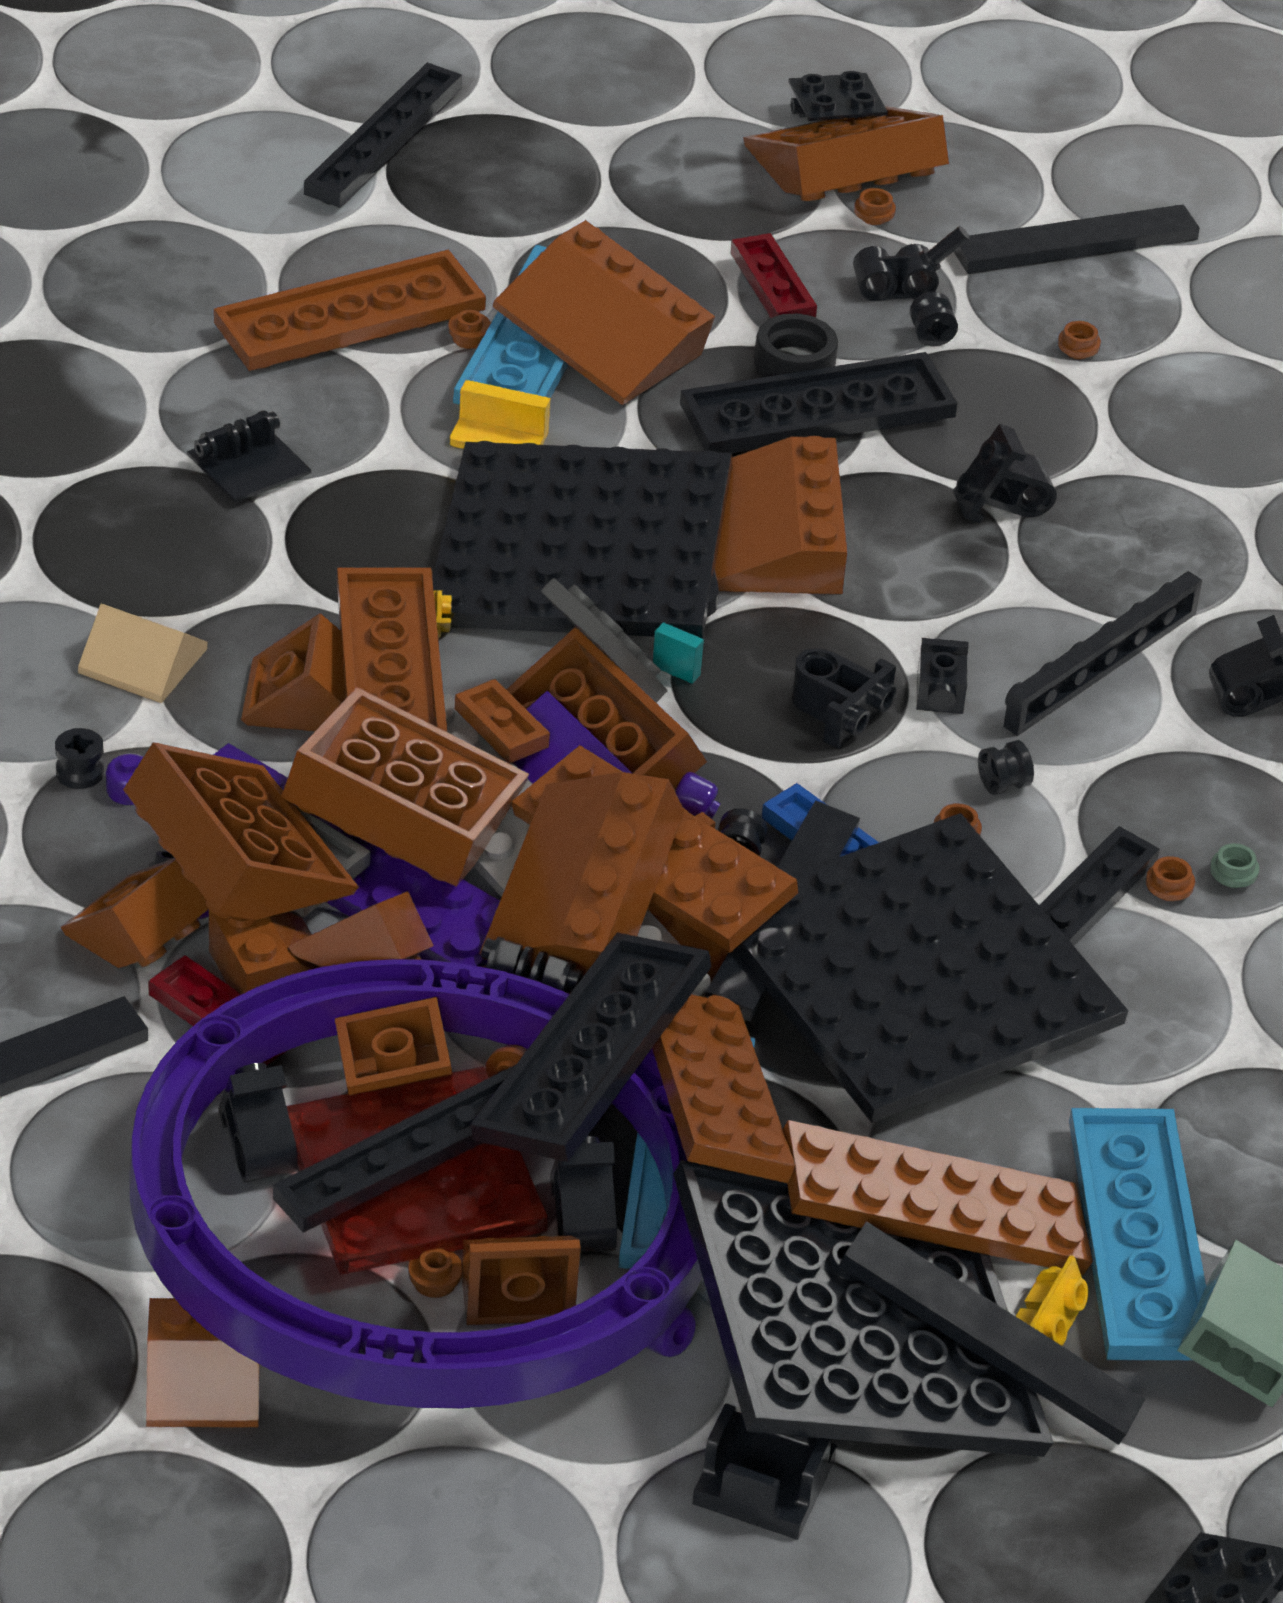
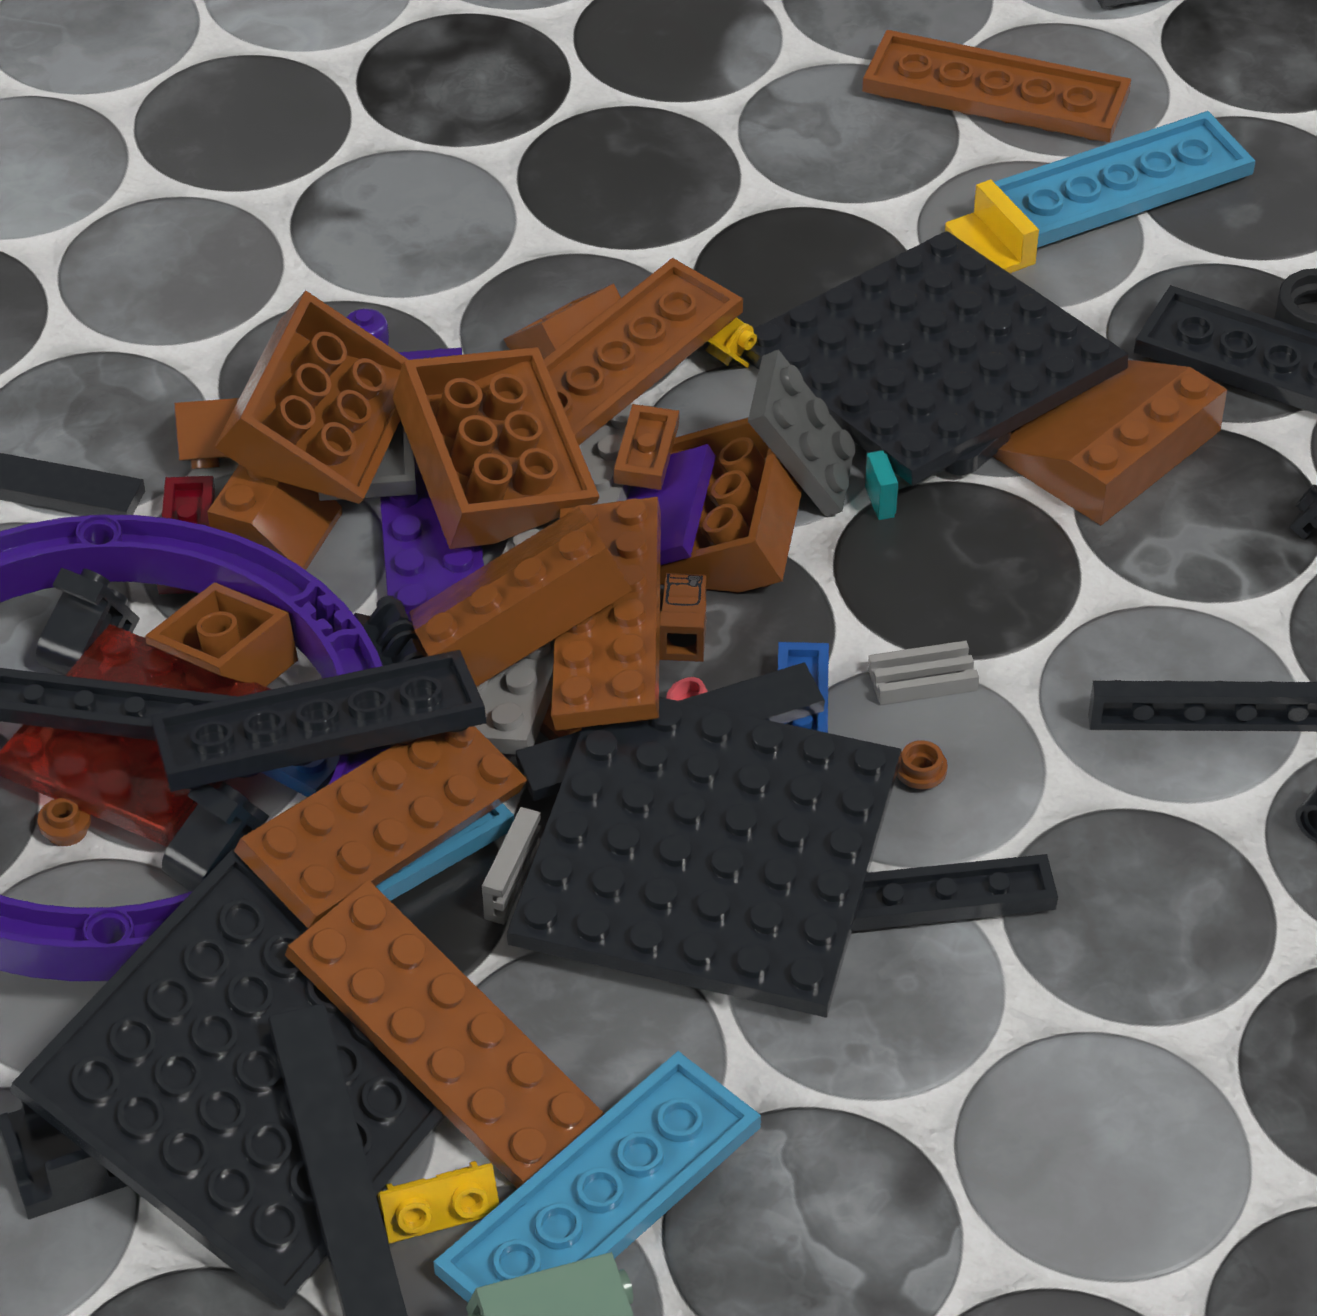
camera: 50 degrees right, 5 degrees up
(79, 758) = (348, 290): black wheel -> none
(138, 654) = (498, 246): tan slope -> none
(247, 456) = (765, 154): black hinge -> none
(376, 933) = (330, 545): dark orange slope -> none
(468, 328) = (1072, 143): dark orange plate -> none
(519, 1278) = (91, 858): dark orange slope -> none
(606, 313) = (1177, 191): dark orange slope -> none
(697, 795) = (739, 605): dark purple piece -> none
(744, 828) = (724, 657): black wheel -> none
(798, 1072) = (511, 866): none -> light grey tile
(841, 692) = (969, 599): black pin -> none
(843, 780) = (921, 666): none -> light grey tile
(942, 675) = (1074, 638): black brick -> none
(1005, 767) = (1023, 744): black wheel -> none
(1170, 879) = (1043, 920): dark orange plate -> none
(1235, 866) = (1120, 949): sand green plate -> none

